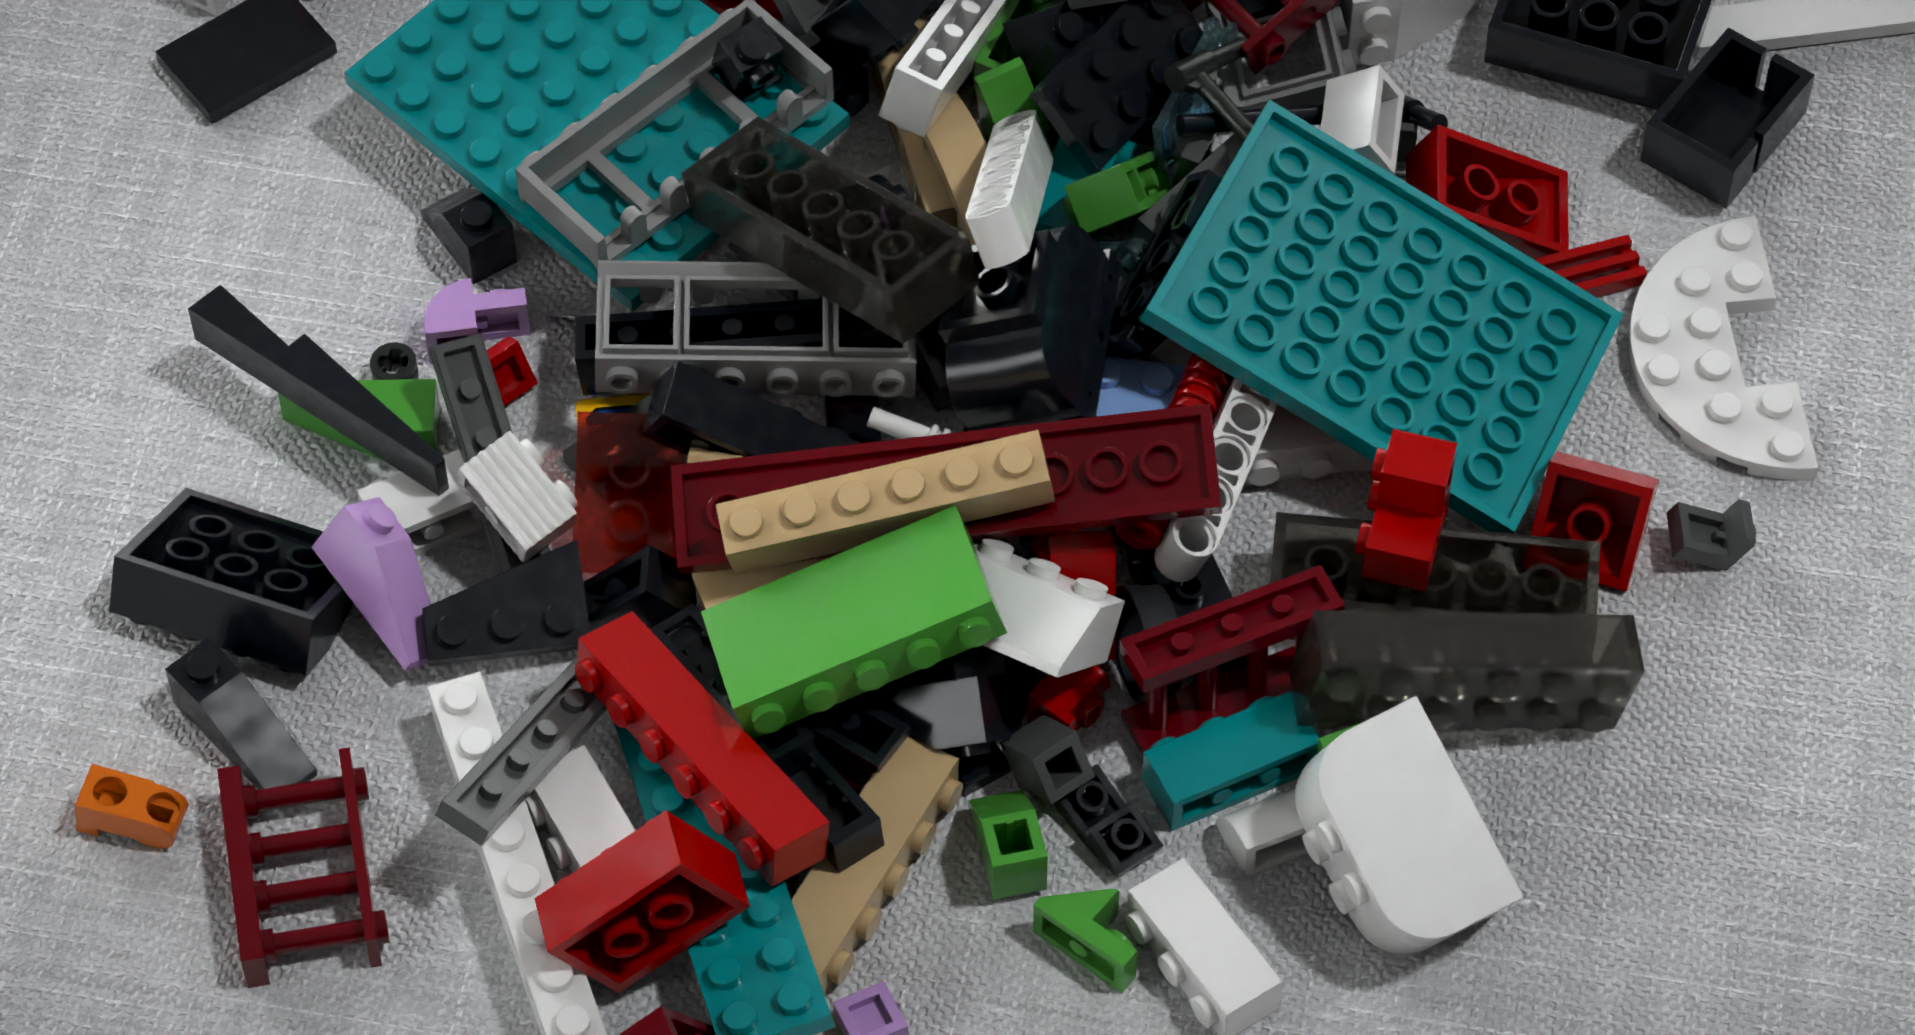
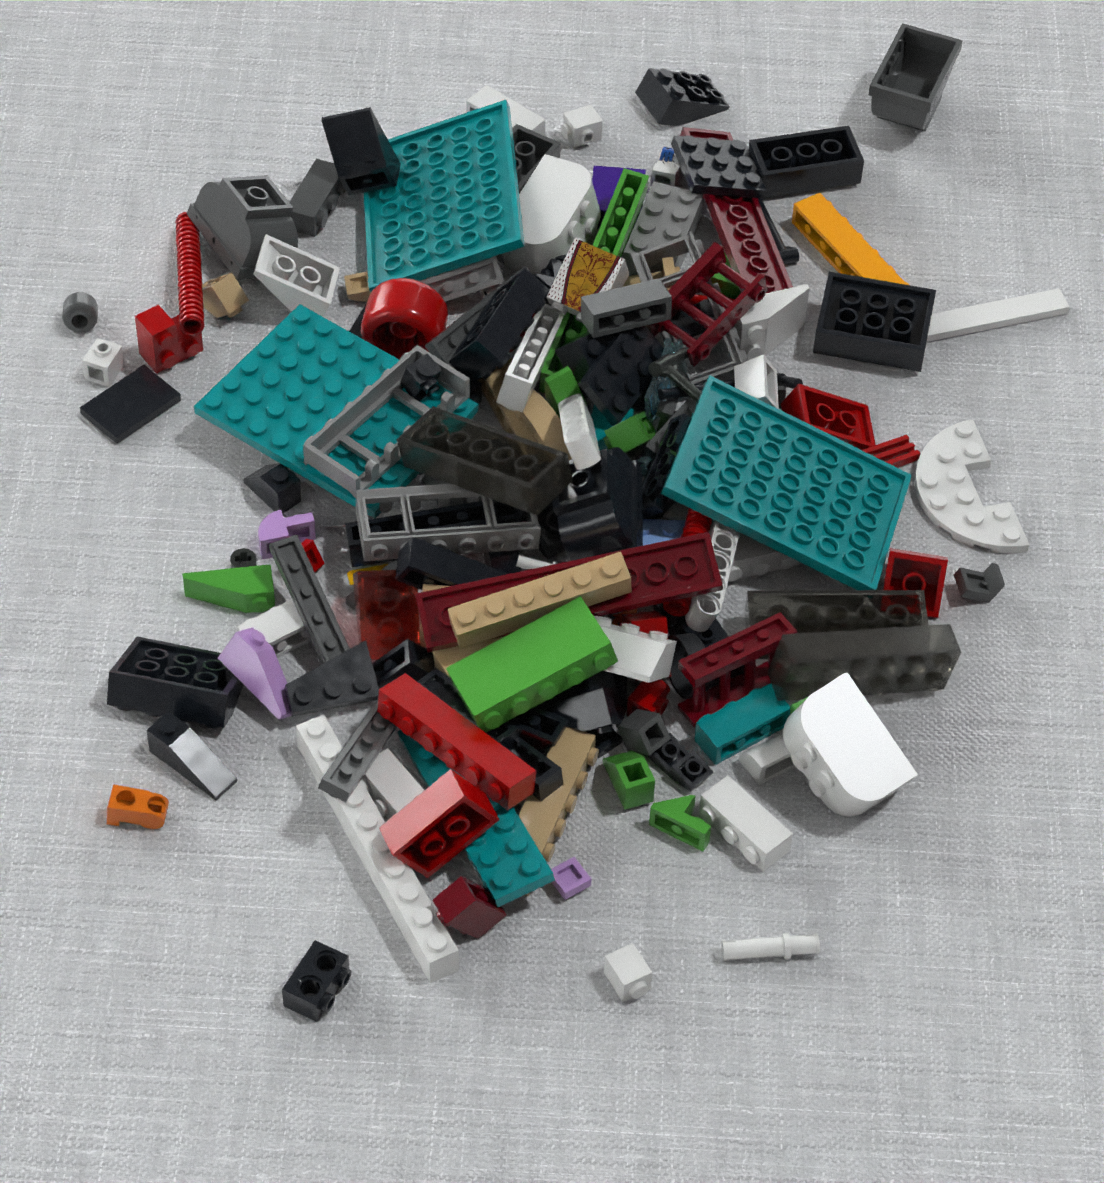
camera: 10 degrees left, 5 degrees down
(256, 897) = (215, 848): dark red fence -> none
(316, 384) = (206, 572): black slope -> none
(518, 495) = (330, 619): white brick -> none
(1409, 506) = (820, 579): red brick -> none
(1721, 122) = (944, 374): black piece -> none

